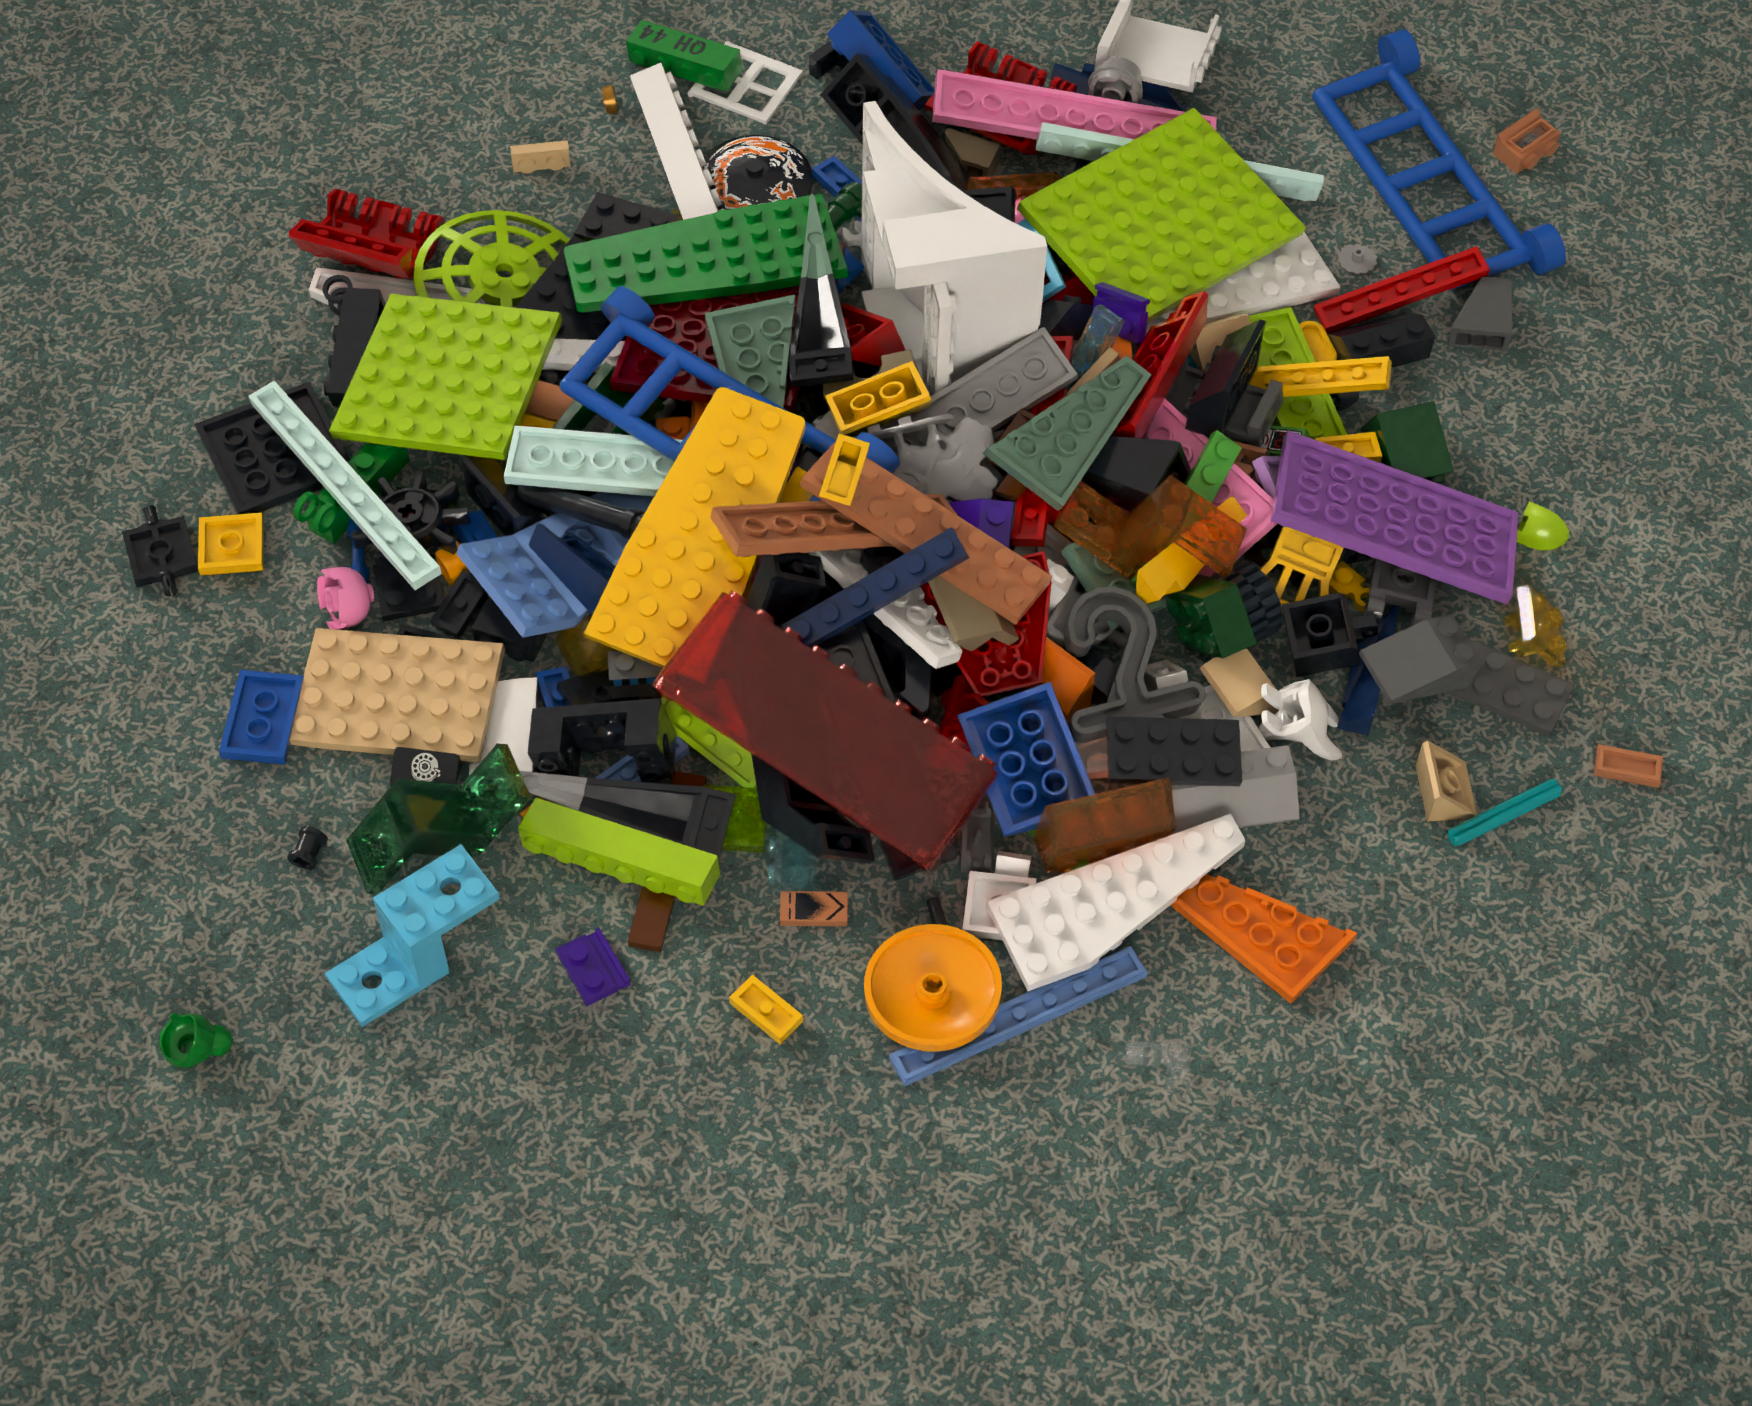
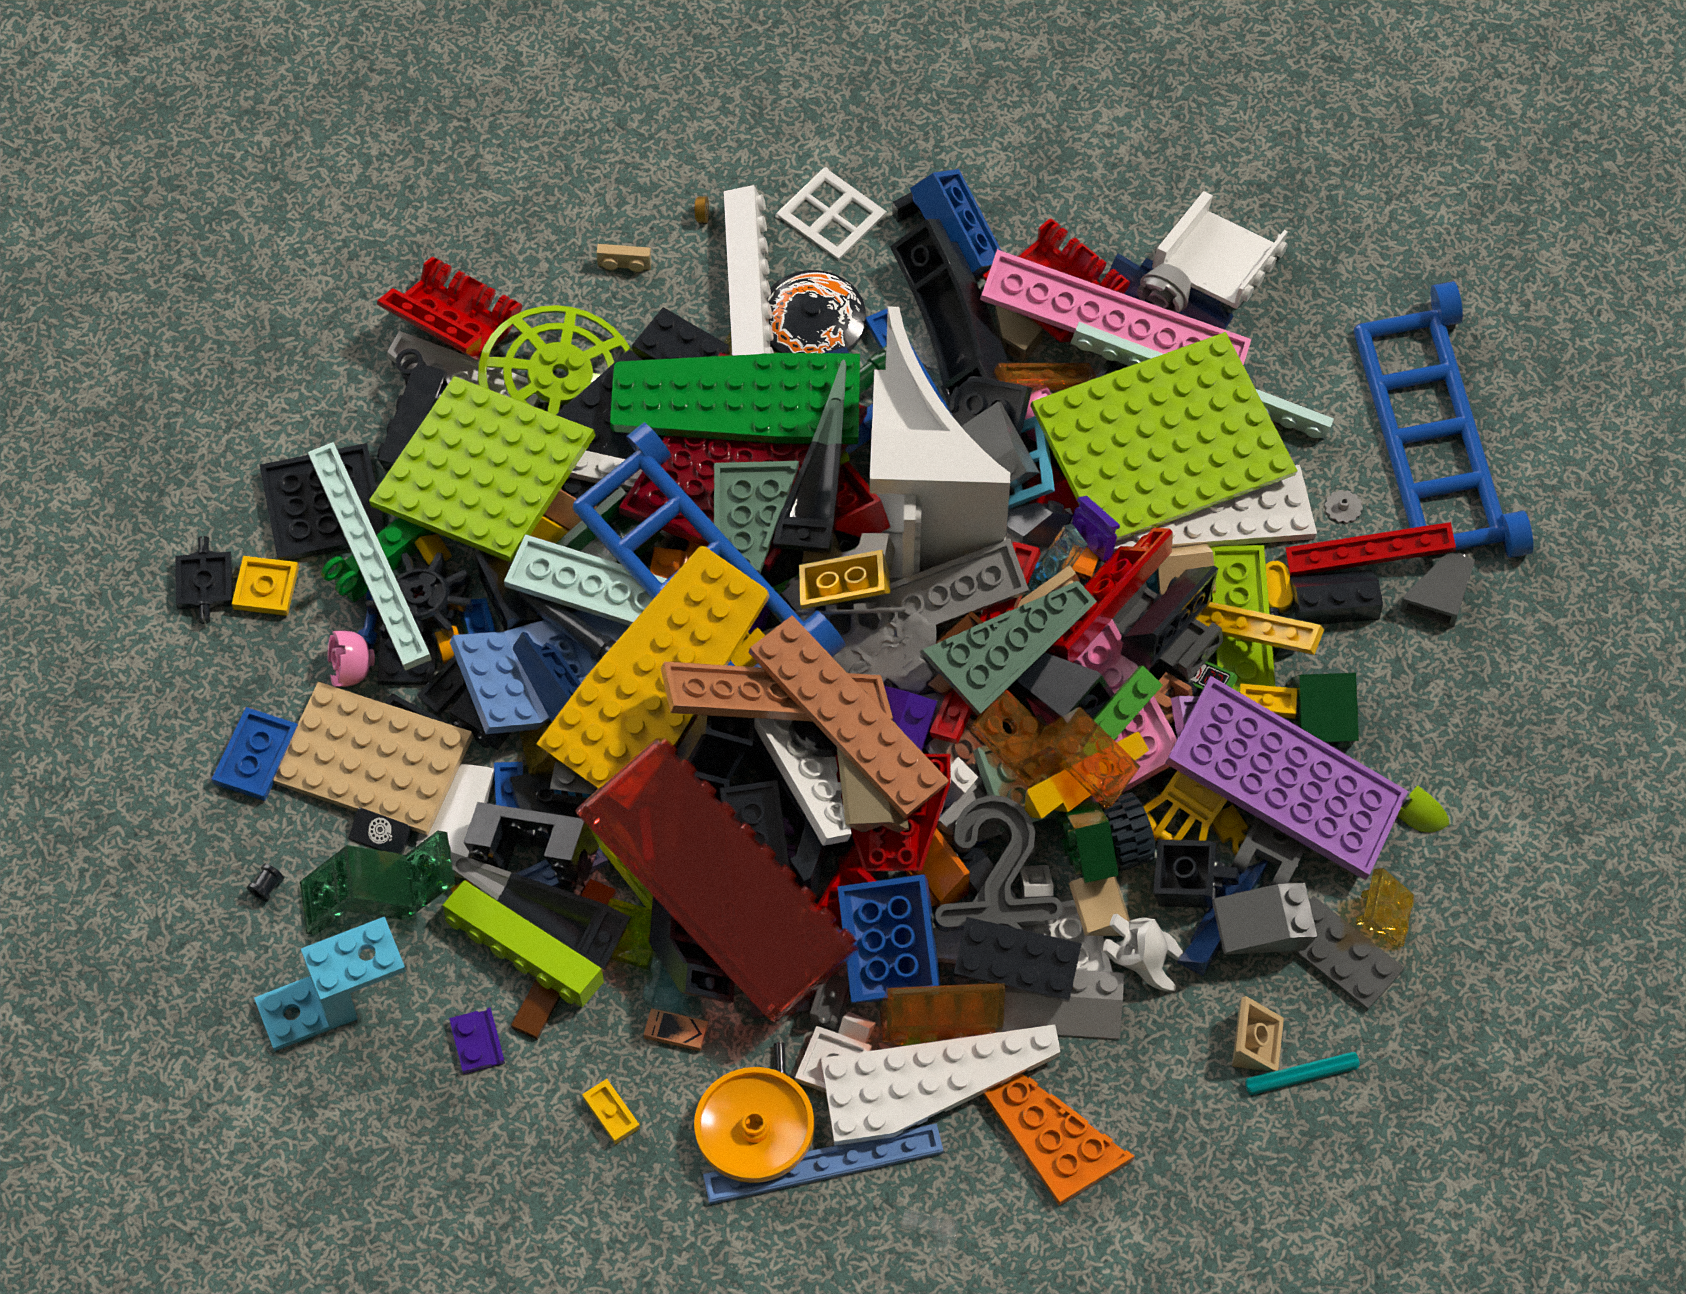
camera: 15 degrees right, 5 degrees up
(198, 1038) = (140, 1037): green piece -> none
(405, 470) = (430, 545): none -> yellow tile
(685, 55) = (780, 178): green brick -> none
(844, 469) = (784, 651): yellow slope -> none
(879, 588) = (791, 762): dark blue plate -> none
(1526, 142) = (1540, 419): nougat window -> none
(1628, 765) = (1428, 1054): nougat tile -> none

